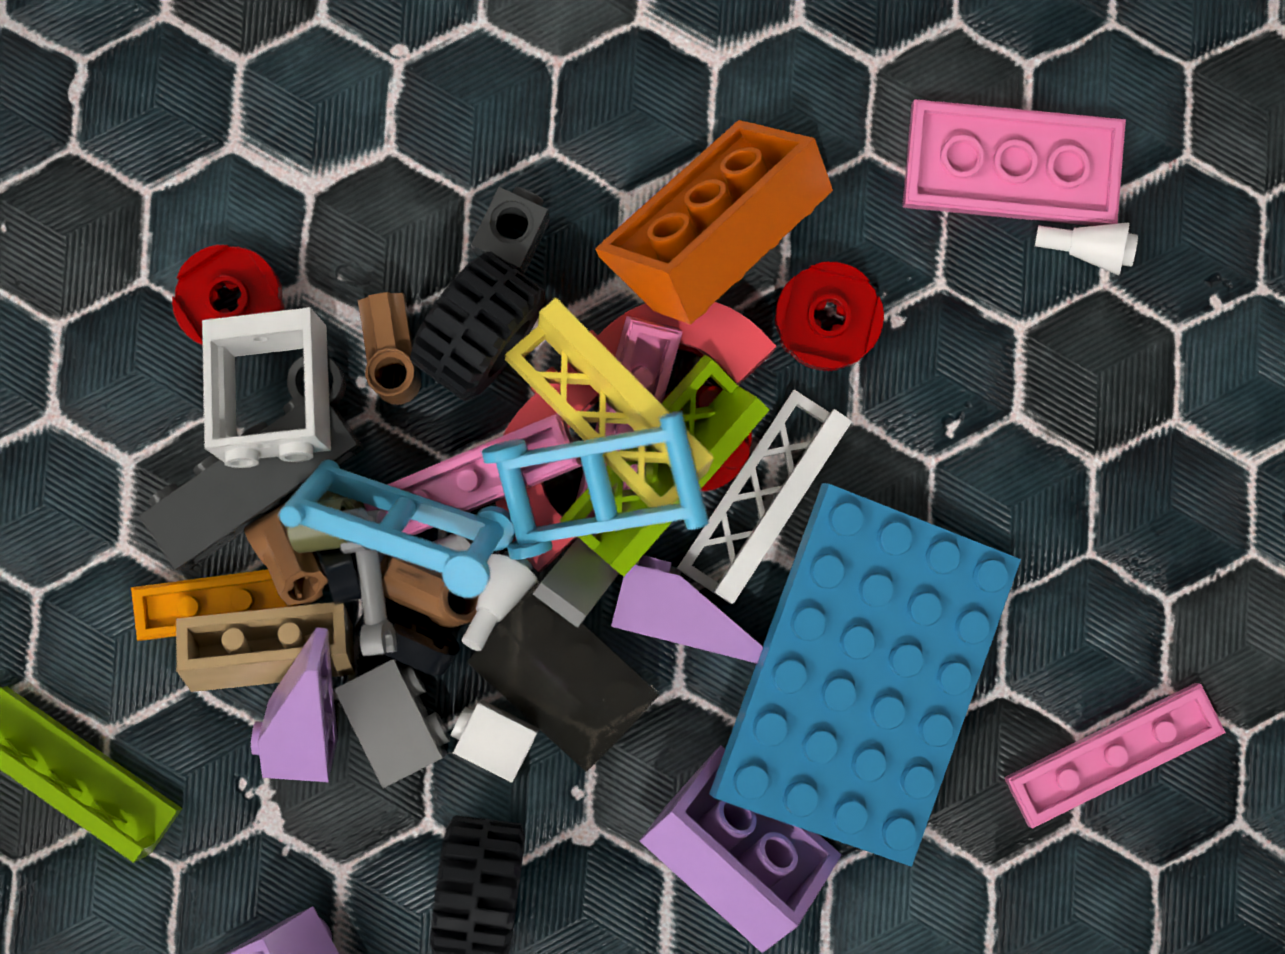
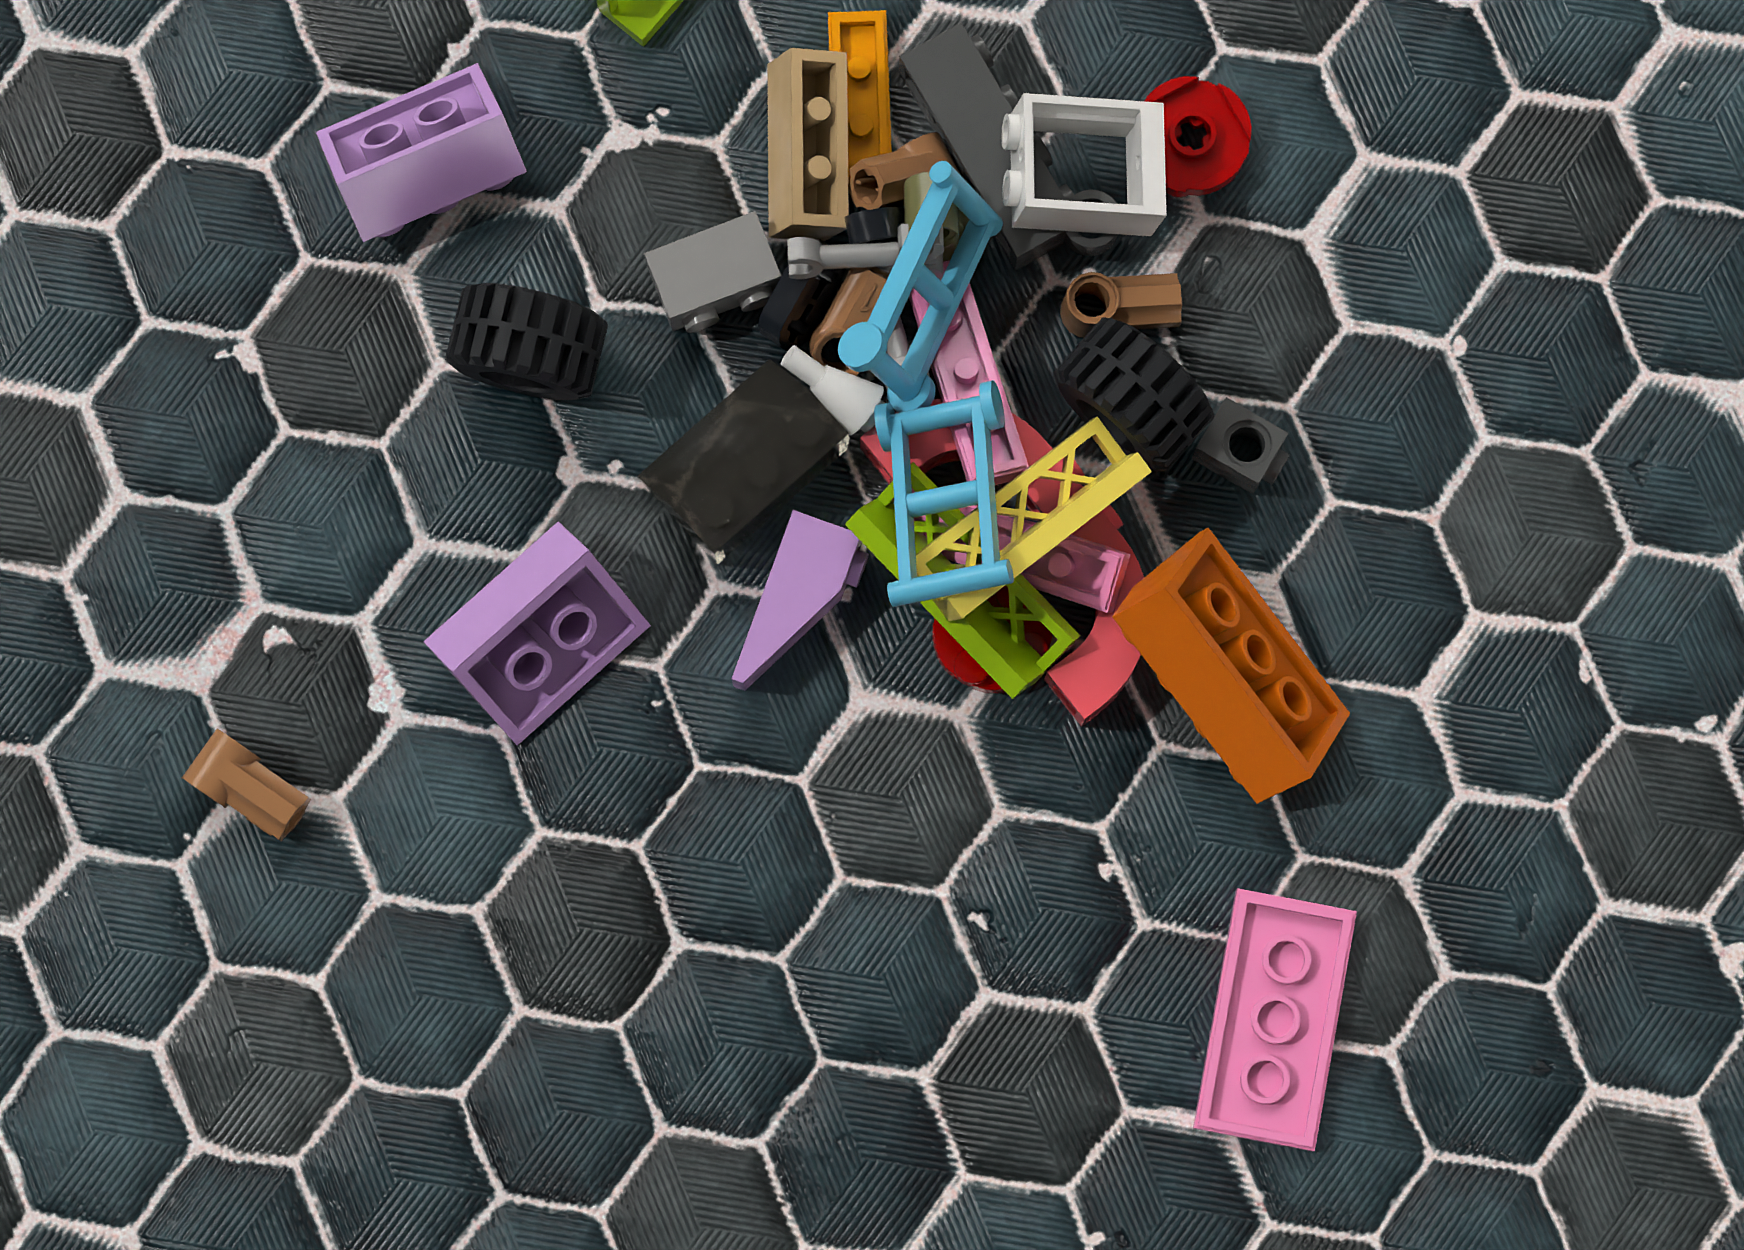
camera: 100 degrees right, 5 degrees down
(300, 718) = (720, 173): lavender slope -> none
(493, 739) = (683, 378): white brick -> none
(576, 582) = (842, 474): light grey tile -> none
(781, 507) = (906, 712): white fence -> none
(854, 300) = (1146, 773): red plate -> none
(865, 676) = (711, 786): dark azure plate -> none
(1099, 245) = (1170, 1106): white cone -> none
(1114, 755) = (594, 1060): bright pink tile -> none

